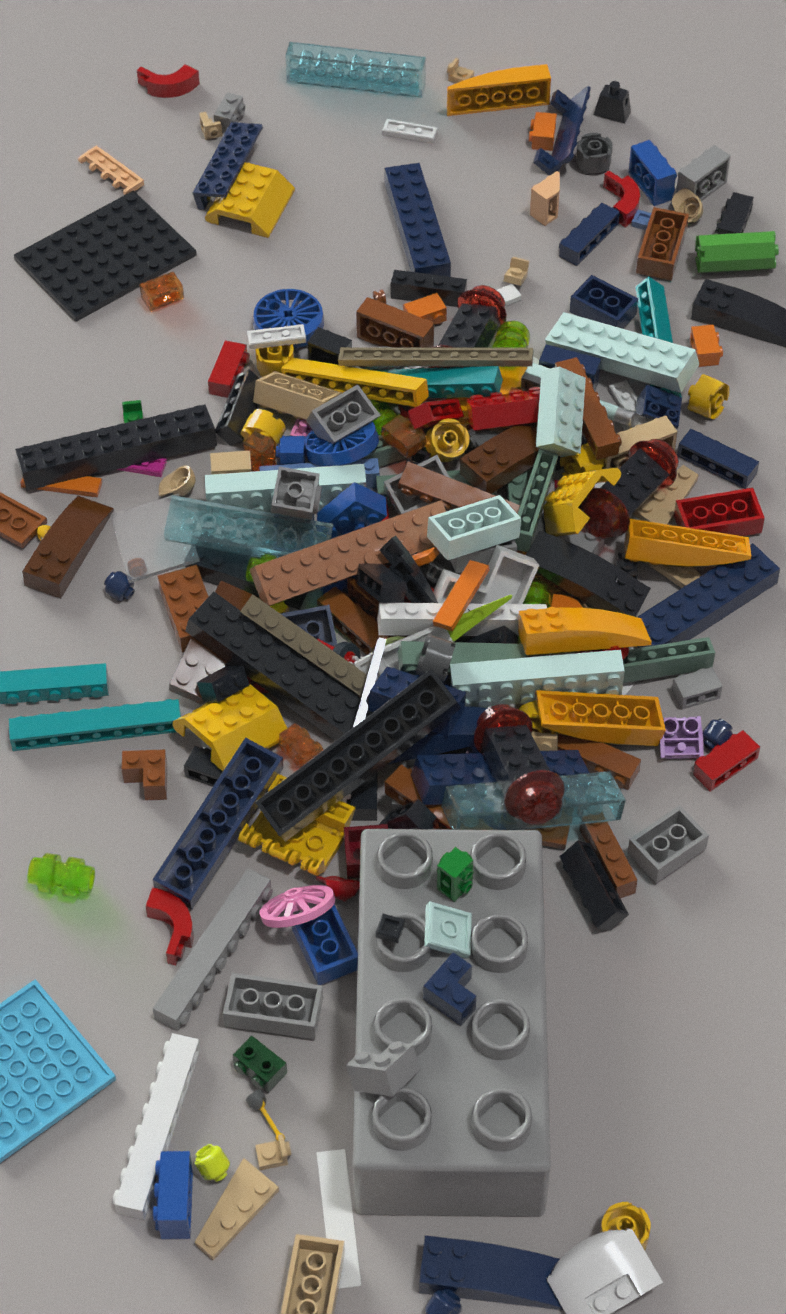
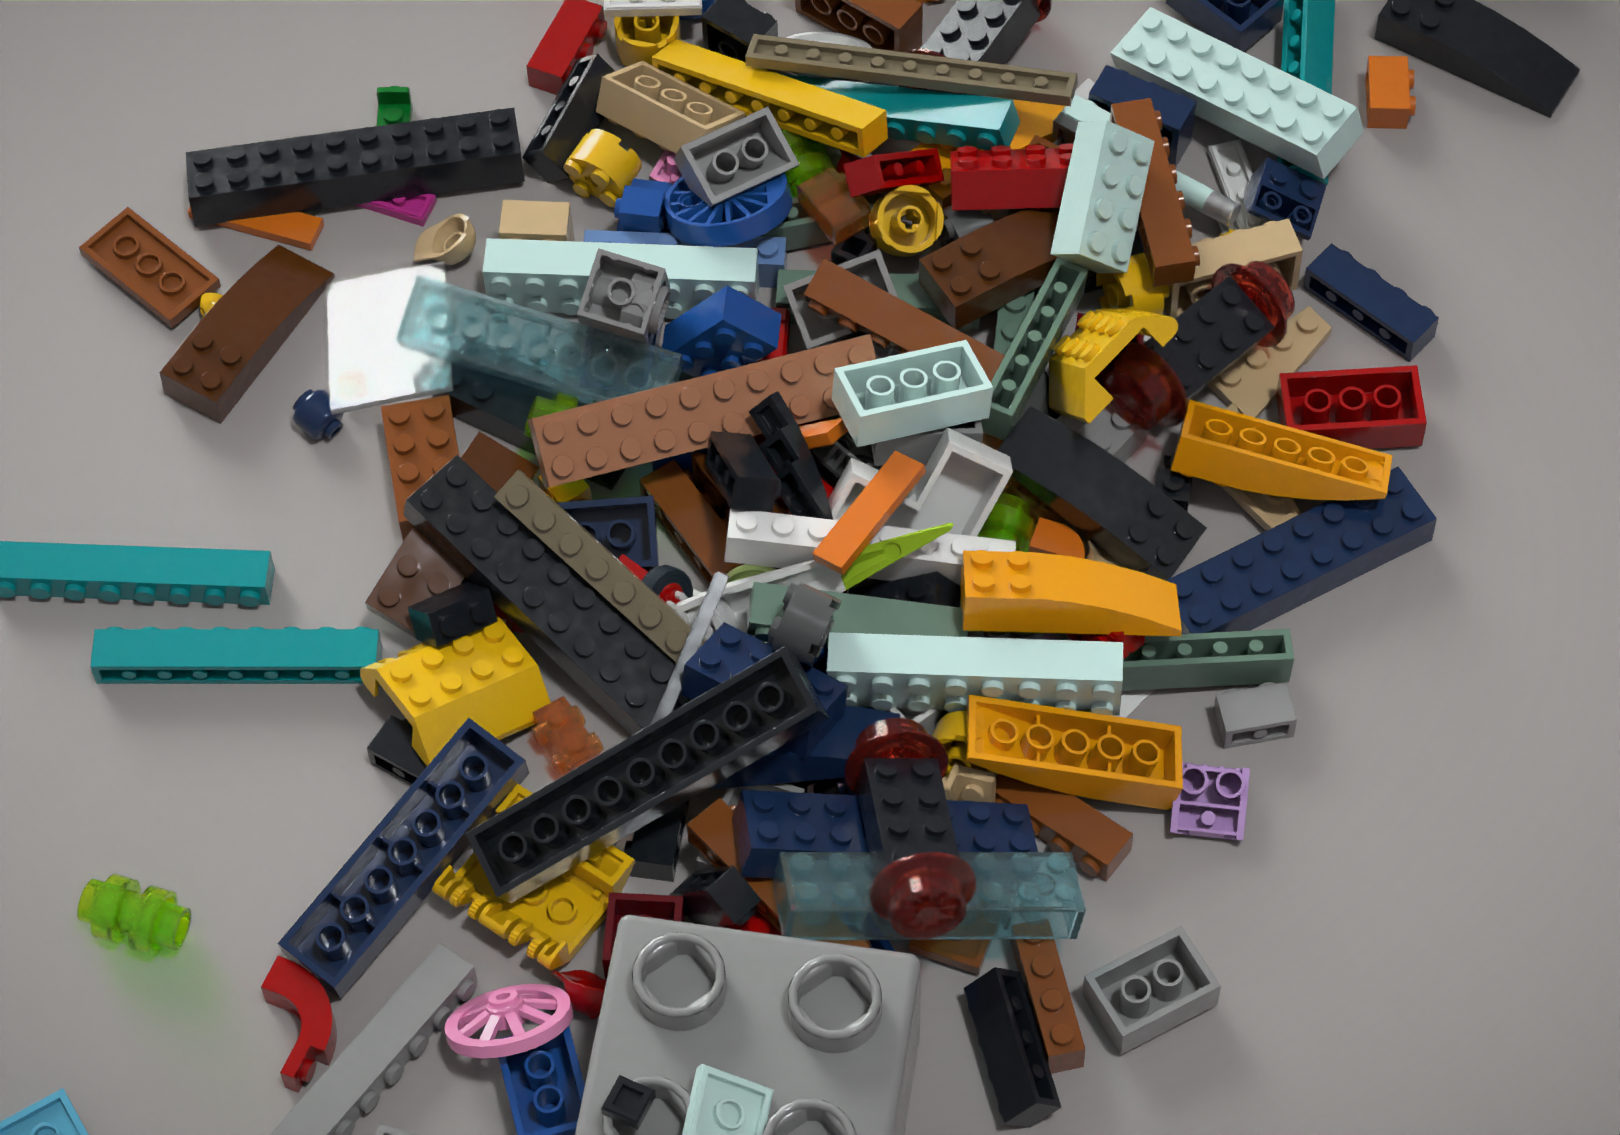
camera: 10 degrees right, 5 degrees up
(149, 768) = (312, 745): dark orange brick -> none
(261, 450) = (590, 203): clear orange brick -> none
(455, 874) = (755, 1019): green brick -> none
(512, 335) = (1053, 44): clear neon green piece -> none
(708, 396) = (1373, 188): yellow brick -> none
(716, 733) = (1273, 803): dark blue head -> none
(726, 760) = (1280, 851): red brick -> none

